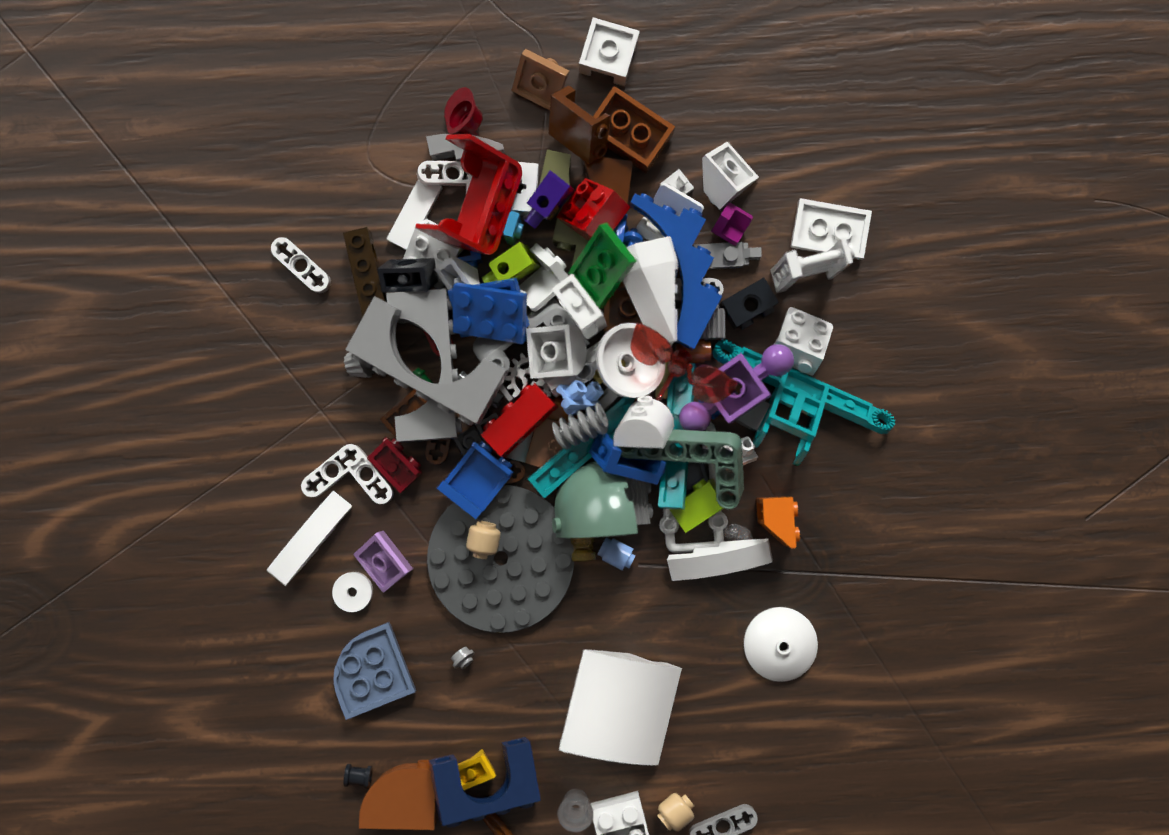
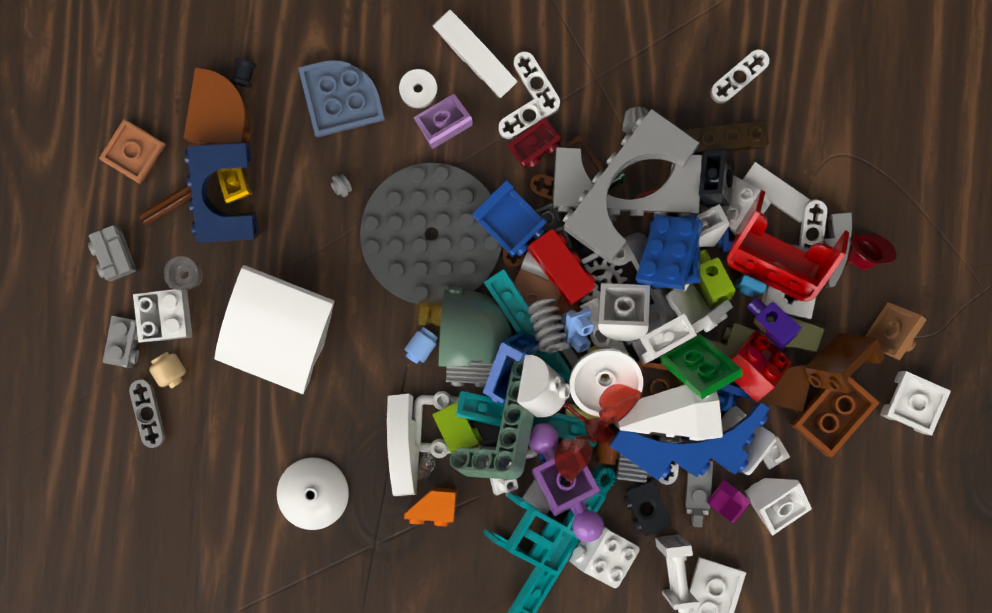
camera: 100 degrees right, 0 degrees up
(483, 539) = (451, 219): tan head -> none

